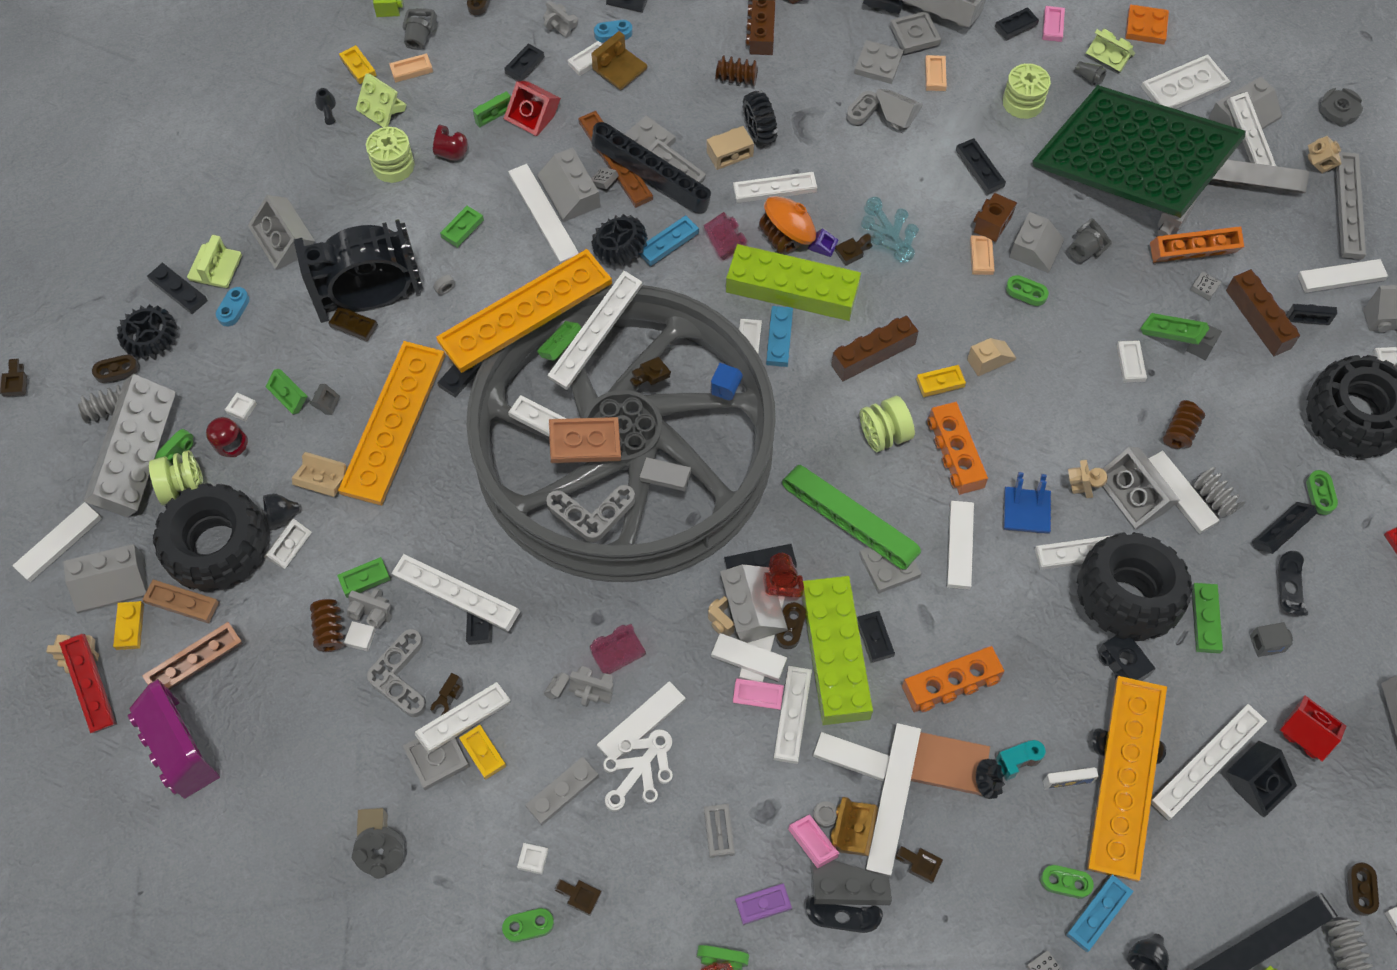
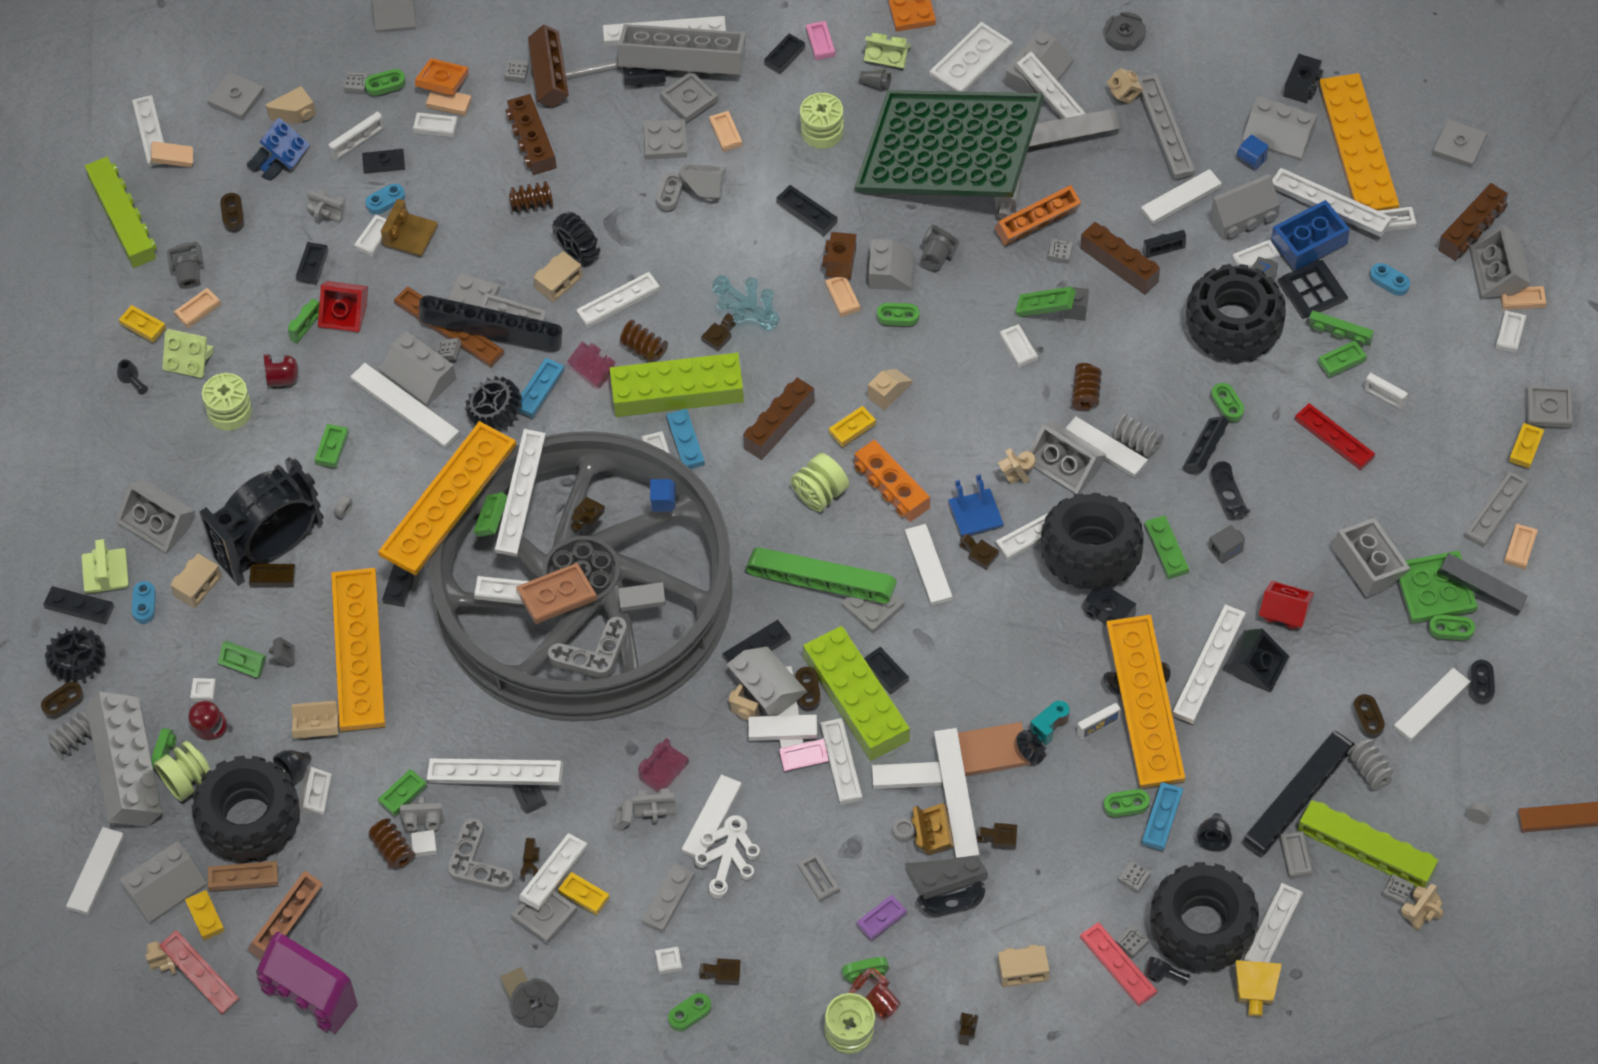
camera: 20 degrees left, 5 degrees down
(284, 304) = (195, 580): none -> tan brick
(783, 577) = (784, 648): clear red piece -> none
(791, 219) = (650, 325): orange dish -> none
(813, 841) = (902, 853): bright pink tile -> none
(824, 243) = (687, 337): dark purple slope -> none
(983, 660) = (970, 668): orange brick -> none
(1016, 553) = (981, 553): none -> dark brown plate

